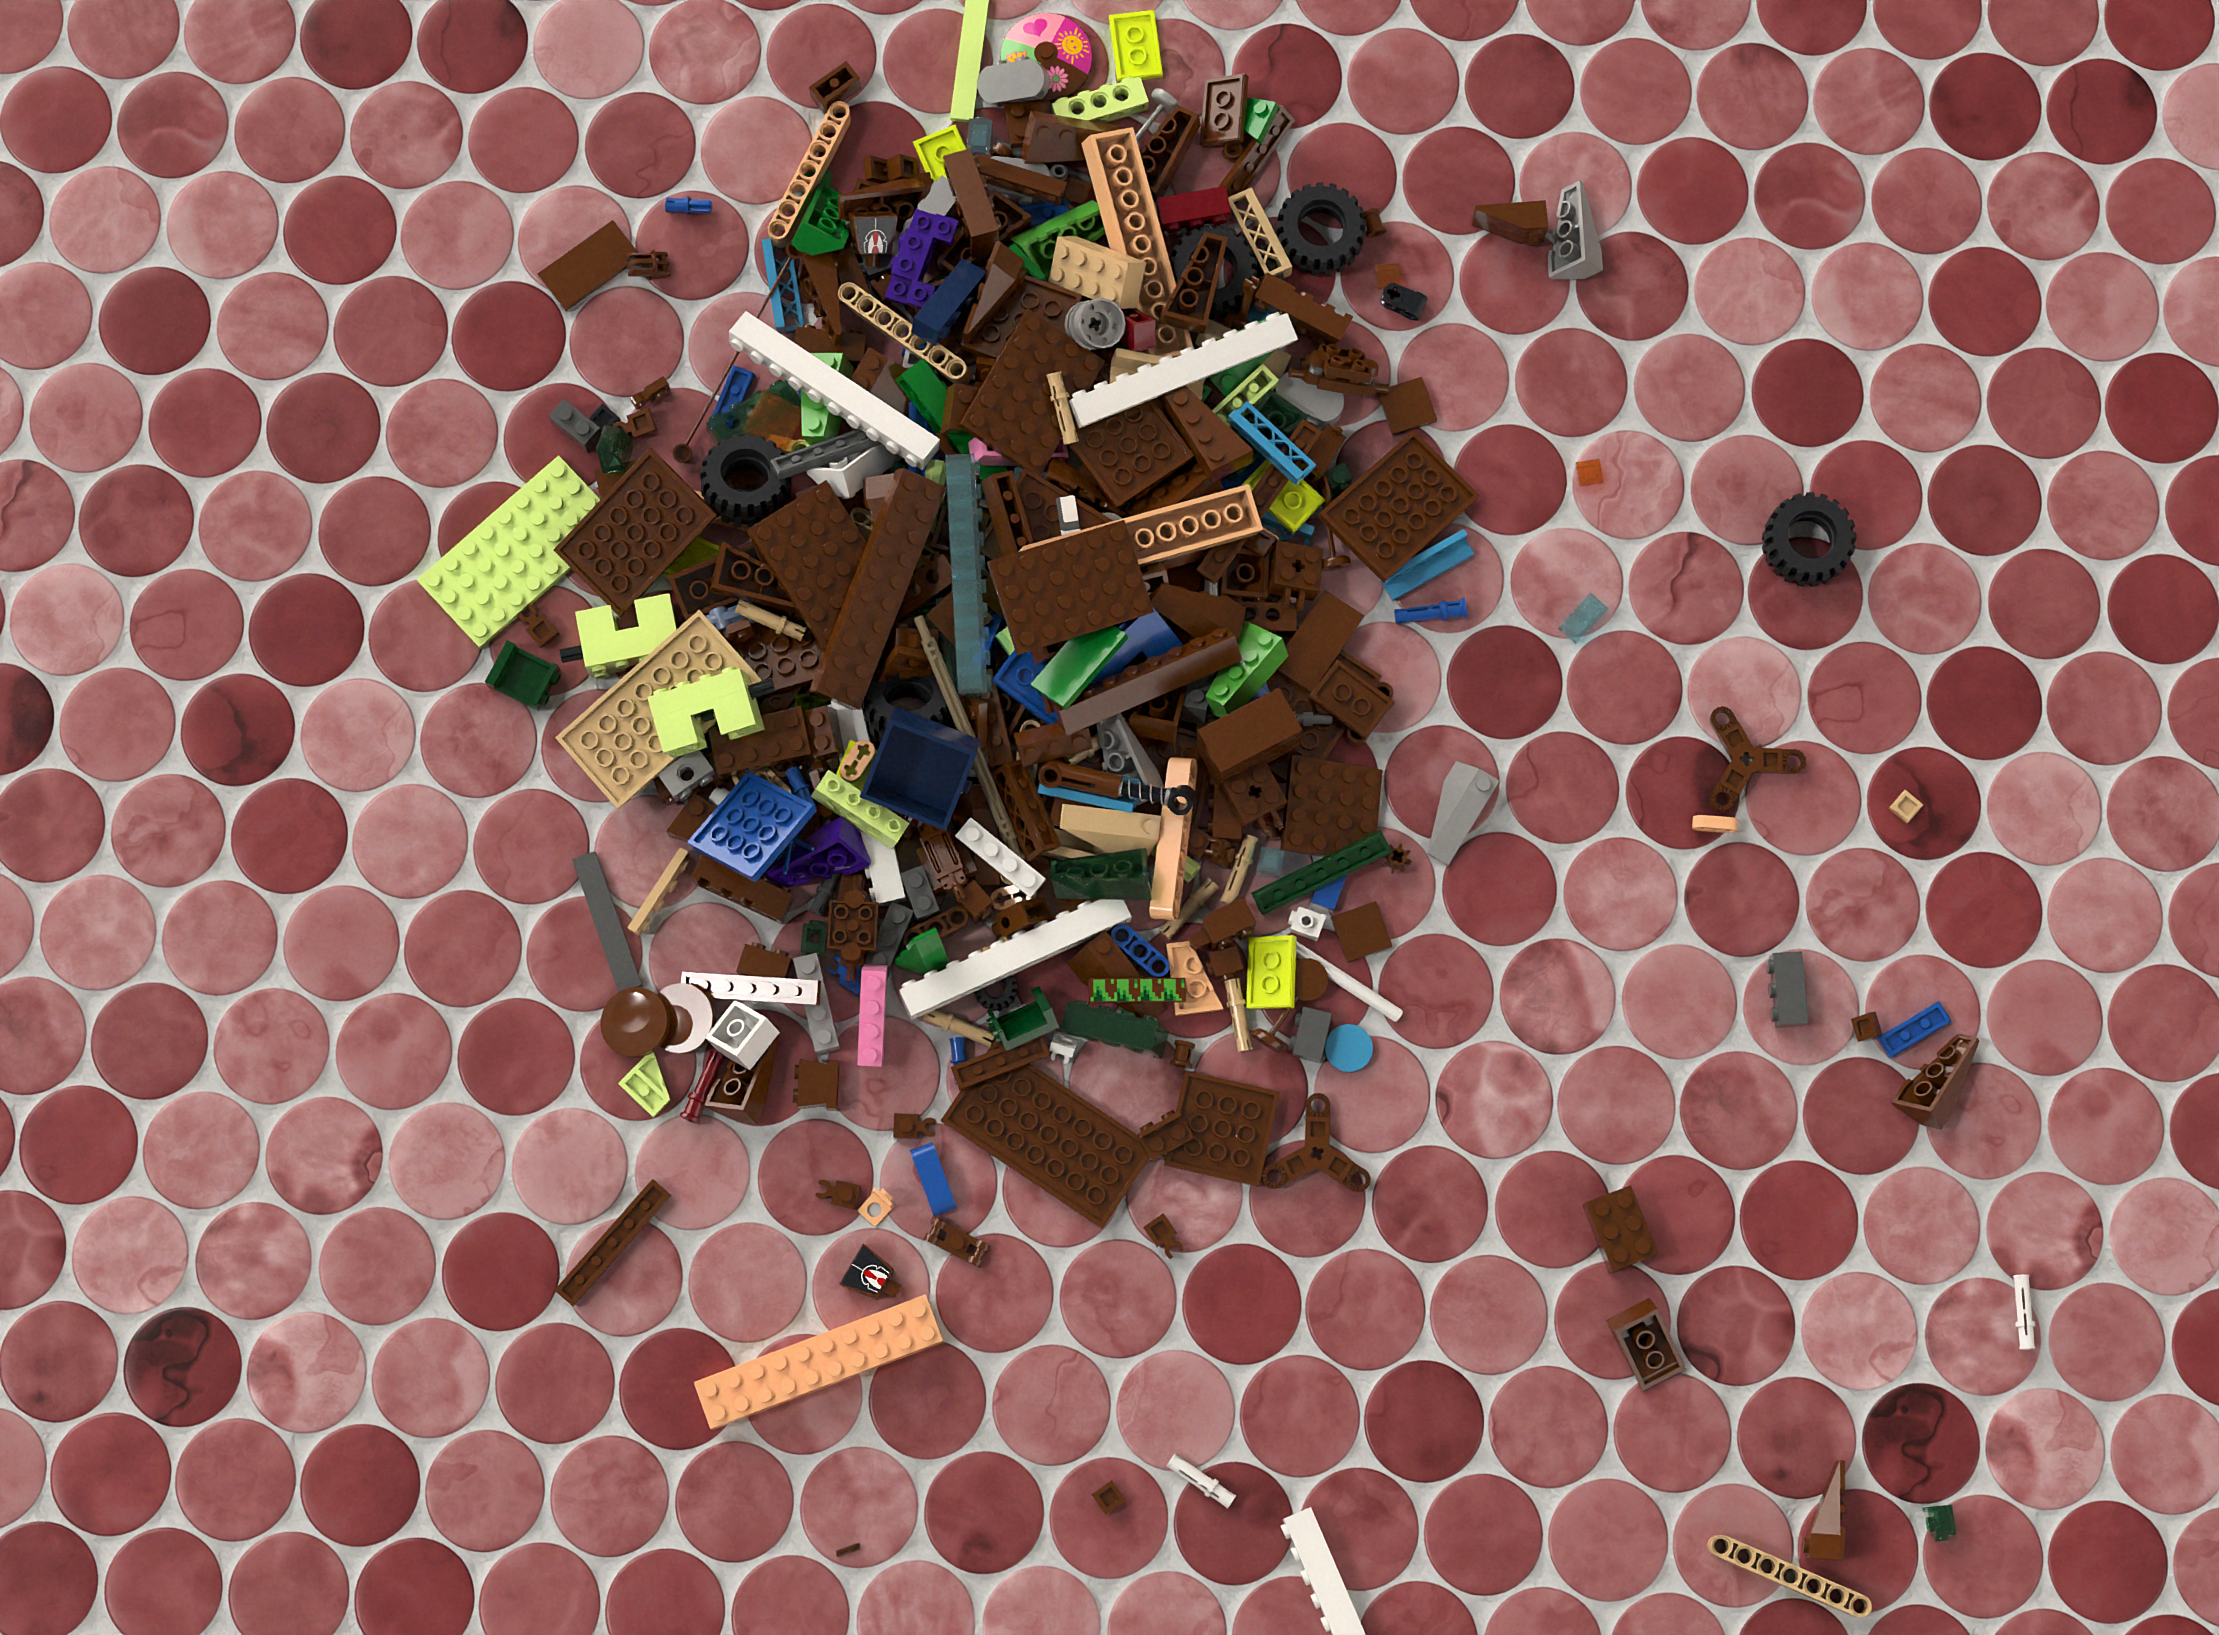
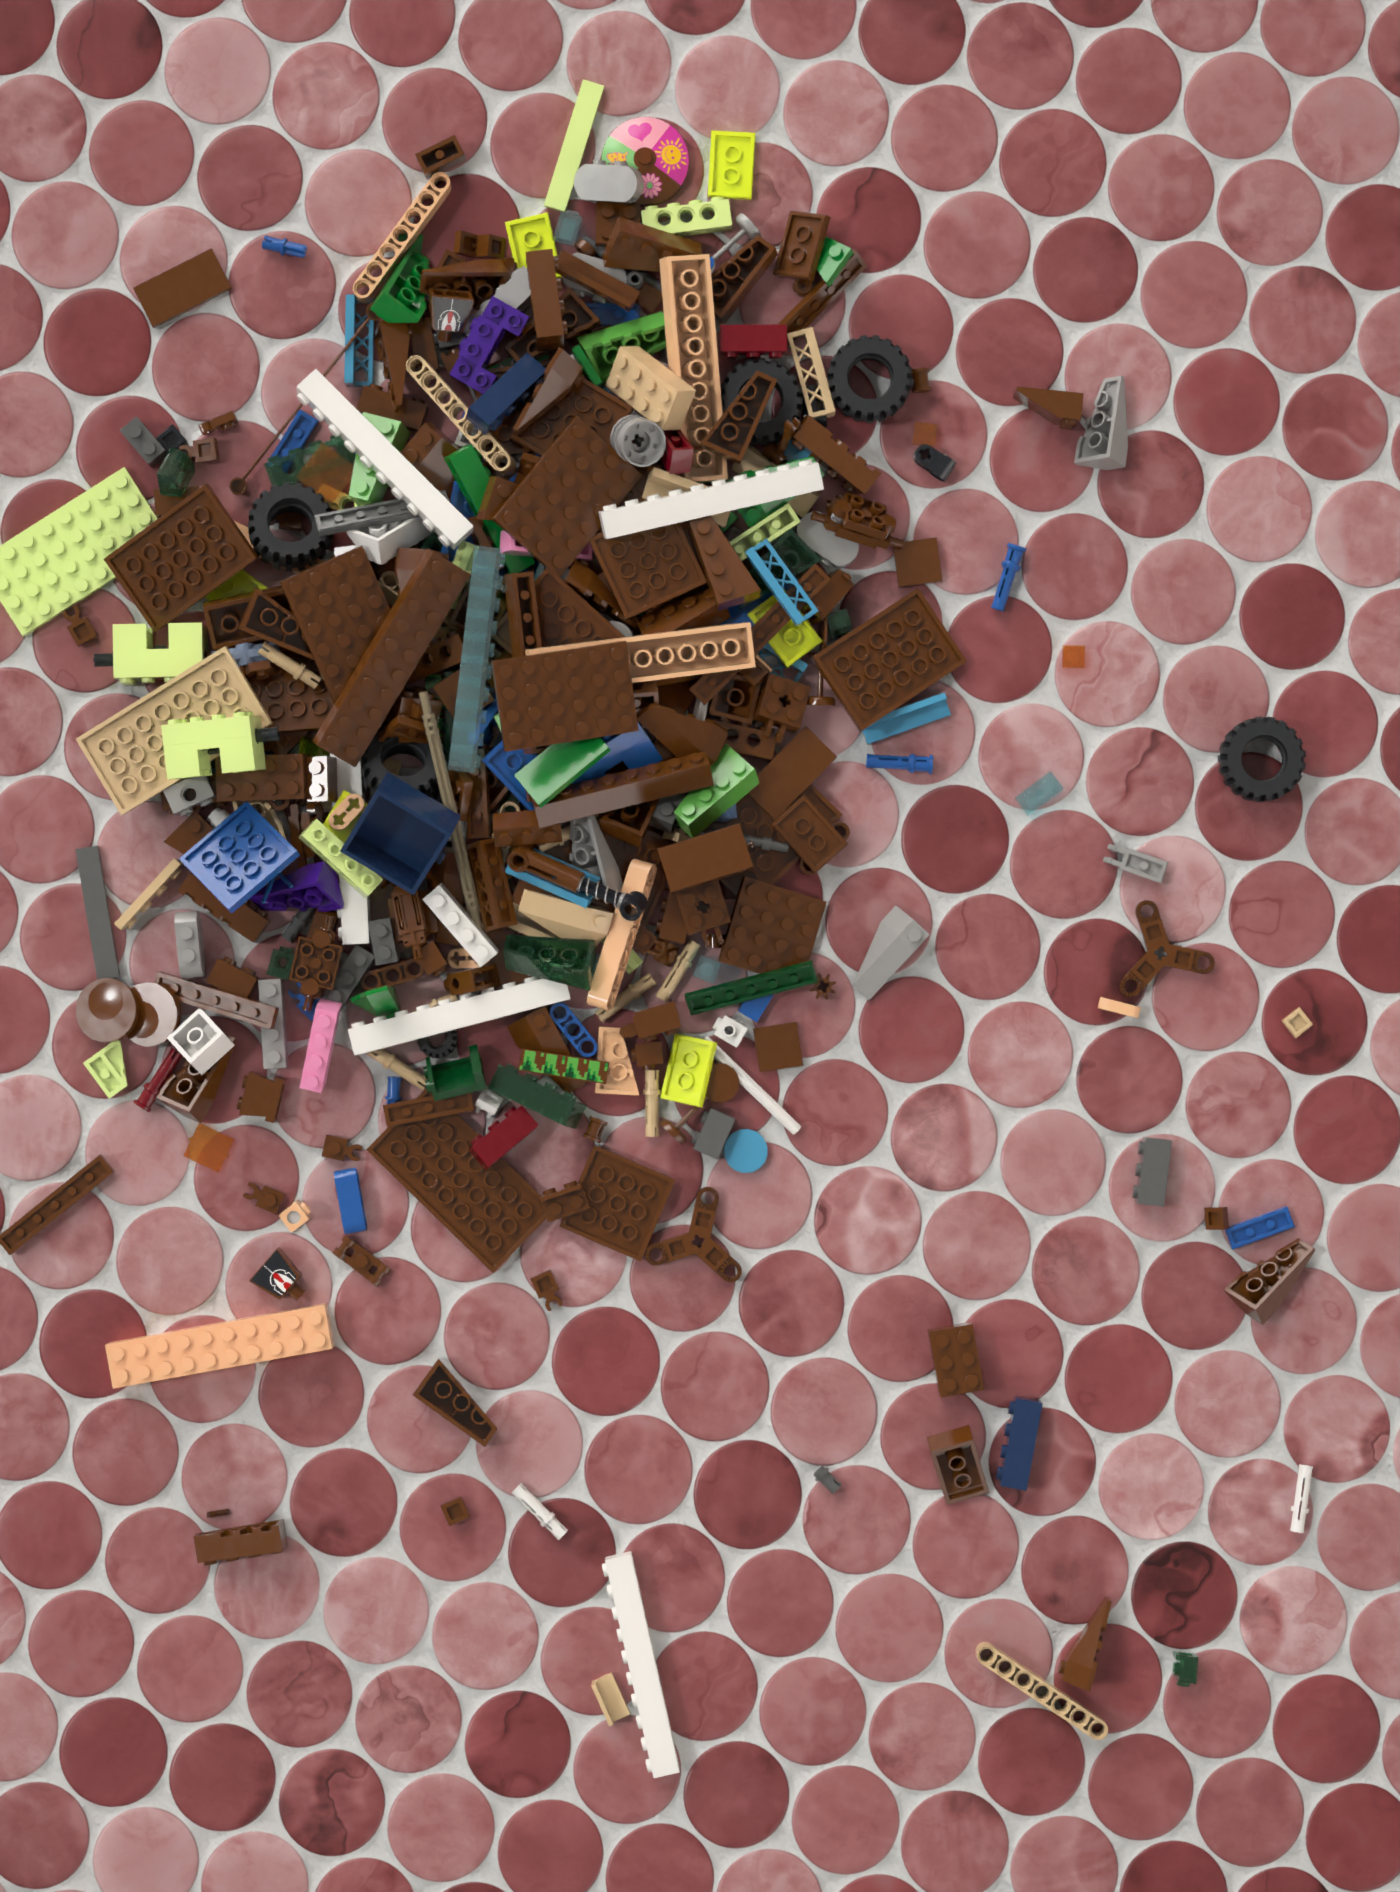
camera: 10 degrees right, 10 degrees up
(523, 676) = (58, 670): dark green panel -> none
(646, 265) = (239, 298): reddish brown arm -> none
(712, 935) = (190, 944): none -> light grey brick
(769, 1151) = (208, 1147): none -> clear orange piece
(799, 785) = (291, 826): blue axle -> none
(879, 1574) = (241, 1541): none -> reddish brown wedge
(1062, 407) = (591, 509): tan pin -> none
(1067, 514) = (578, 622): white sticker -> none
(1085, 1078) = (502, 1136): none -> dark red brick
(1087, 1378) = (450, 1400): none -> reddish brown wedge
(1505, 393) = (1010, 567): none -> blue pin
(1508, 1387) = (827, 1479): none -> dark grey pin
(1702, 671) = (1138, 863): none -> light grey hinge
(1708, 1308) = (1020, 1443): none -> dark blue brick

